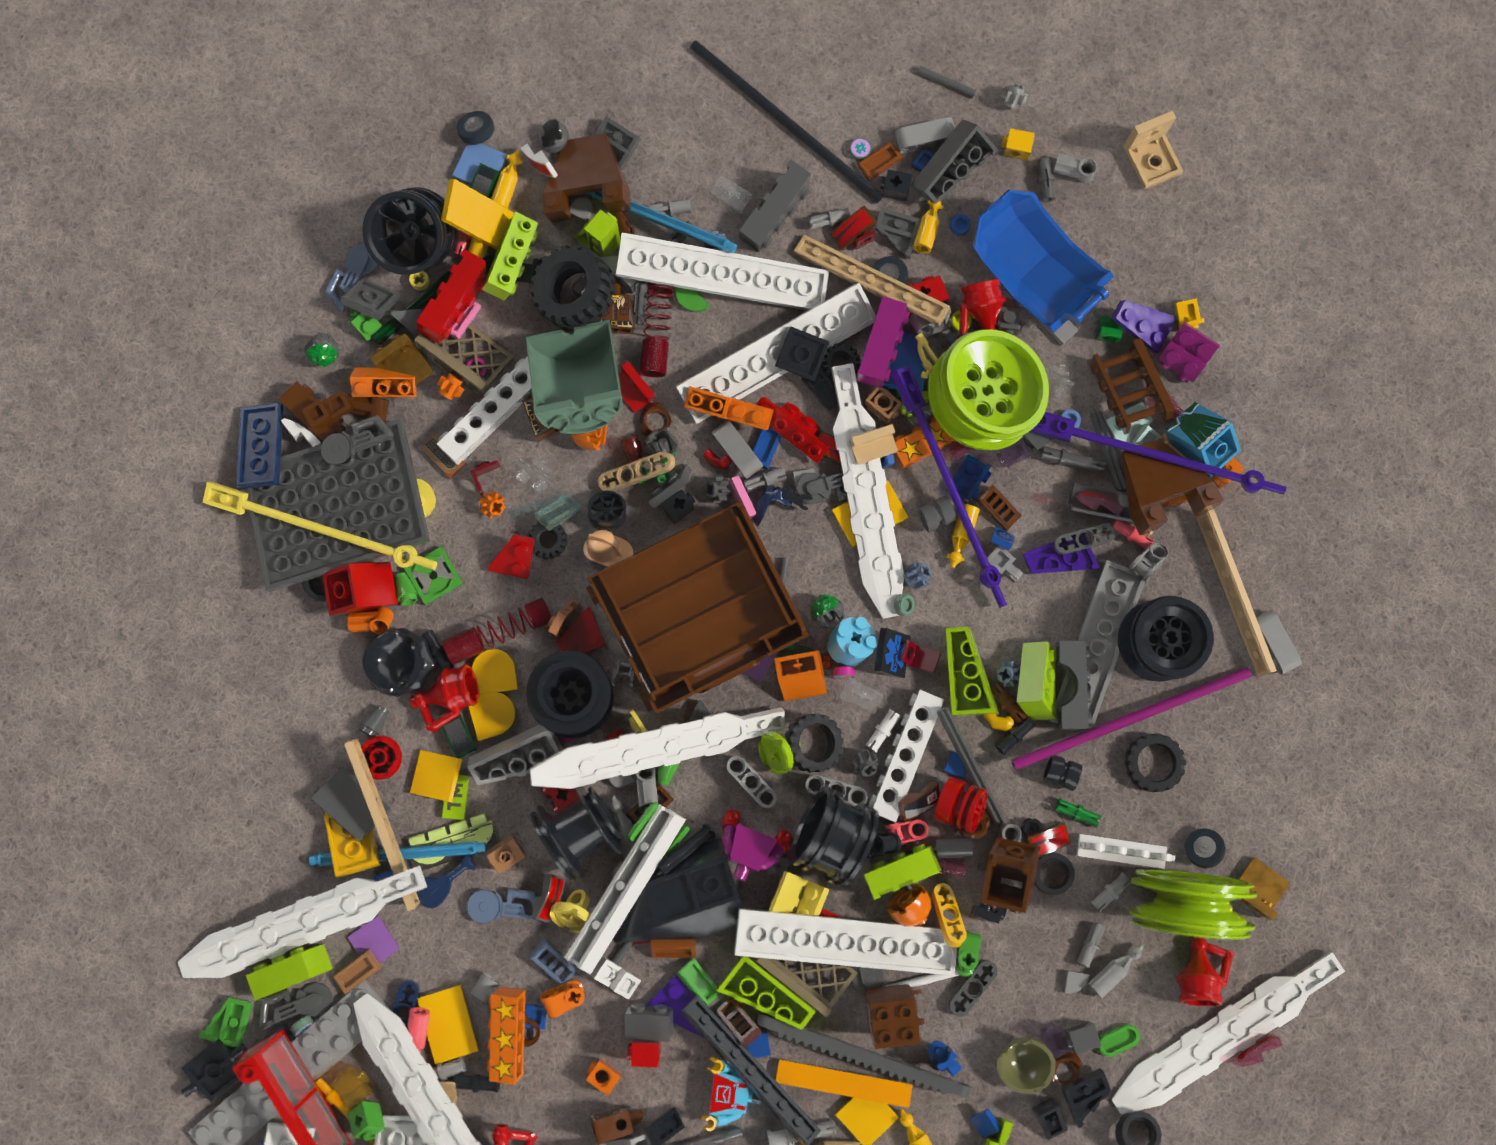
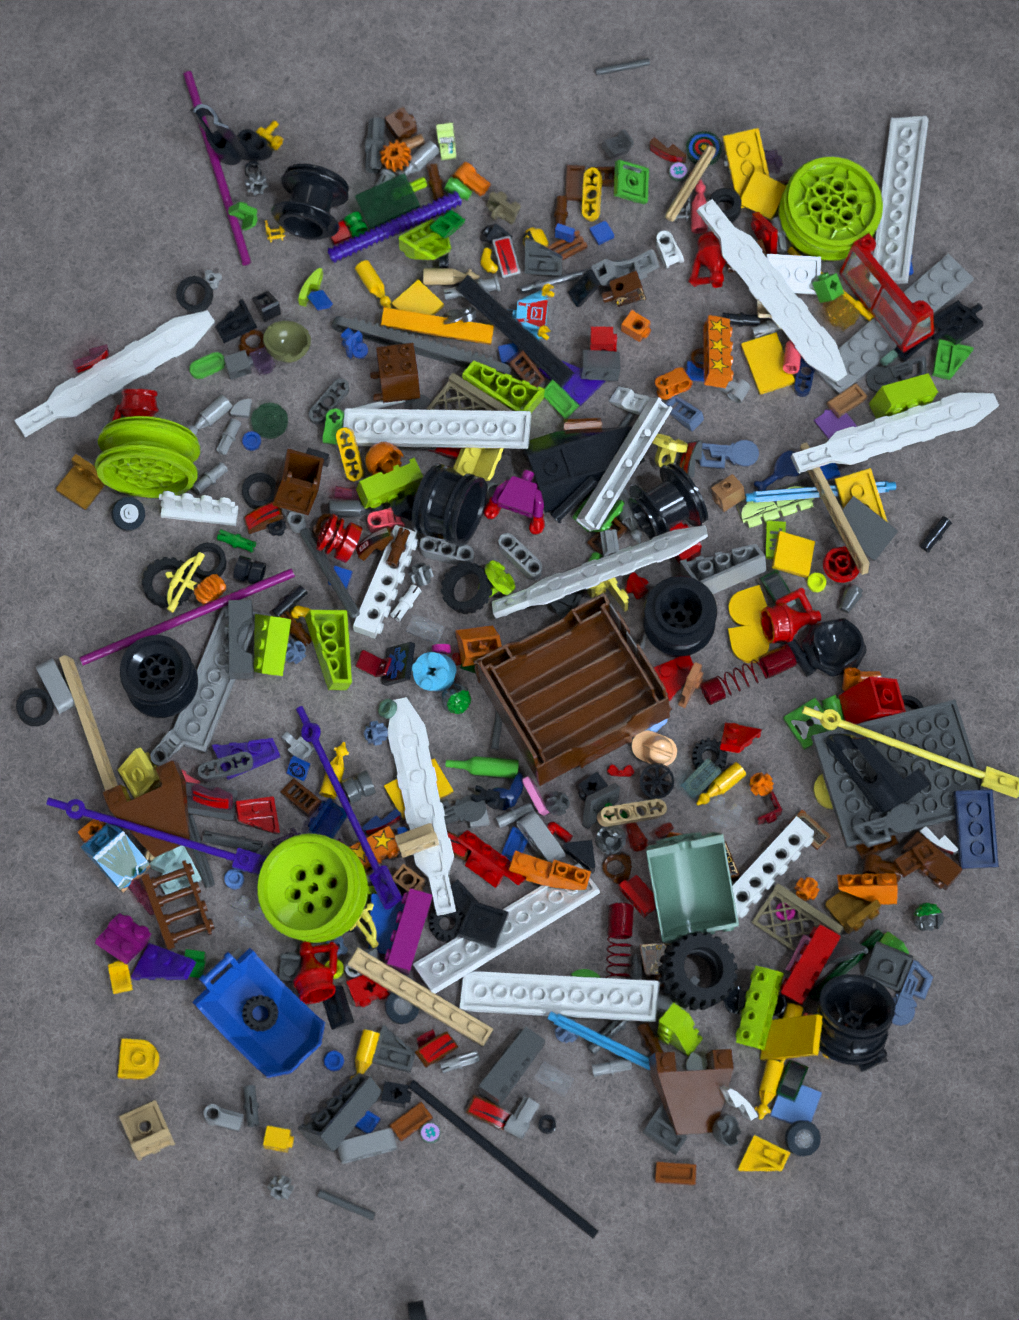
camera: 175 degrees left, 10 degrees down
(269, 797) = (935, 534): none -> black pin
(353, 478) = (887, 787): none -> black panel
(412, 743) = (816, 582): none -> neon yellow tile
(516, 113) = (763, 1156): none -> yellow wing
(525, 515) = (723, 783): none -> yellow wheel
(602, 457) = (664, 829): none -> clear red tile
(608, 101) = (675, 1173): none -> dark orange tile
(639, 527) = (628, 771): none -> red piece
(692, 434) = (582, 853): none -> black slope
(740, 147) = (546, 1130): none -> black bush
(766, 157) = (520, 1120): none -> light grey piece
(793, 534) = (487, 766): none -> bright green piece
(806, 162) = (488, 1112): none -> slope
(817, 1096) = (466, 314): none -> flat silver plate
(893, 791) = (398, 547): none -> reddish brown pin
(915, 472) = (377, 824): none -> dark blue slope
(955, 277) = (338, 1009): none -> black slope
(1039, 971) = (275, 420): none -> clear green tile
(1040, 257) = (260, 1001): none -> black tyre
(1045, 489) = (258, 813): none -> red wing
(1063, 939) = (251, 441): none -> blue tile
(1108, 749) = (210, 589): none -> orange gear
(1123, 777) = (212, 547): none -> black tyre
(1135, 756) = (186, 583): none -> light yellow piece
(1165, 233) = (137, 1059): none -> yellow tile
(1176, 536) = (139, 773): none -> light yellow bracket
(1312, 610) = (30, 693): none -> black tyre

